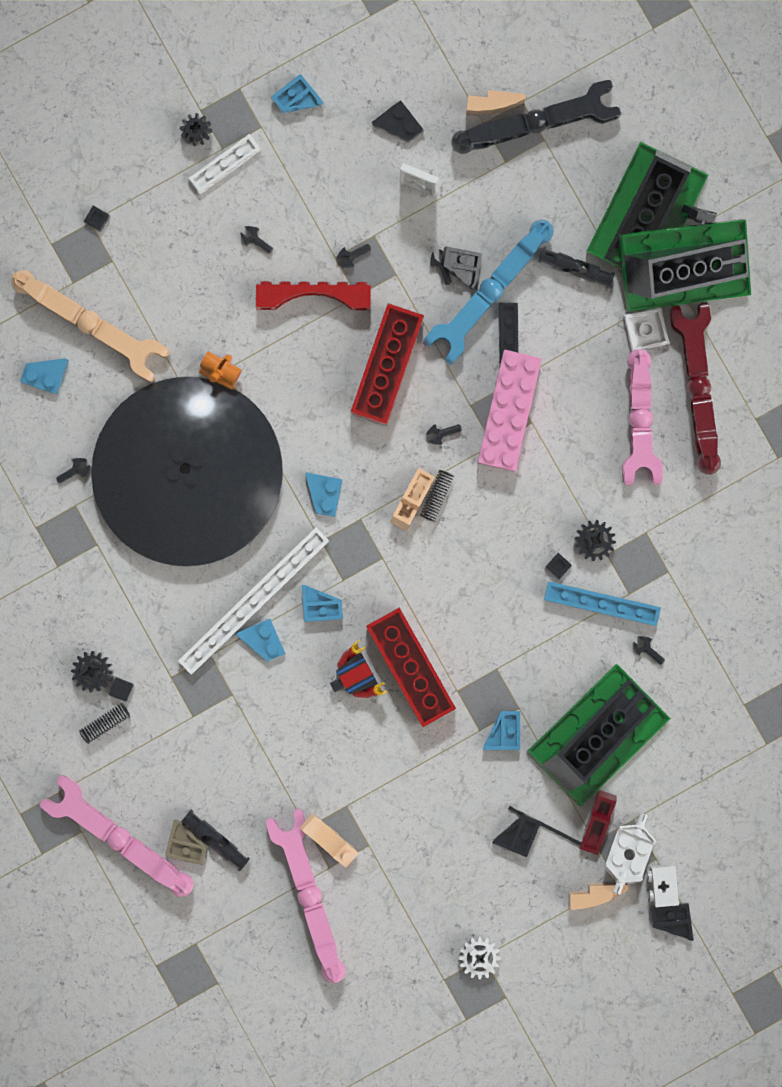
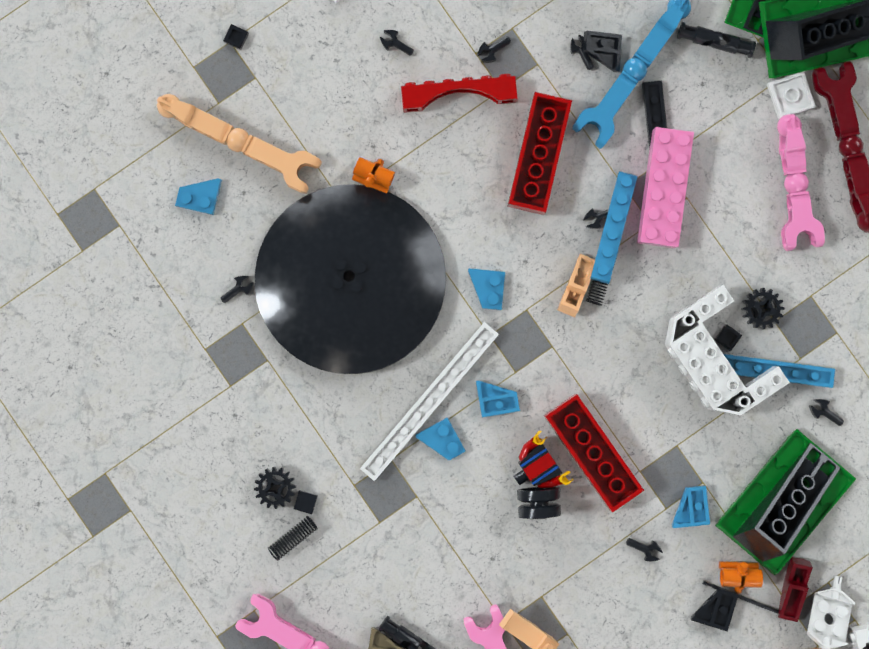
camera: 10 degrees left, 0 degrees up
(351, 712) = (539, 504): none -> black wheel
(452, 767) = (645, 548): none -> black bar
(453, 445) = (613, 227): none -> dark azure plate
(530, 591) = (707, 366): none -> white wedge
(545, 803) = (740, 575): none -> orange pin

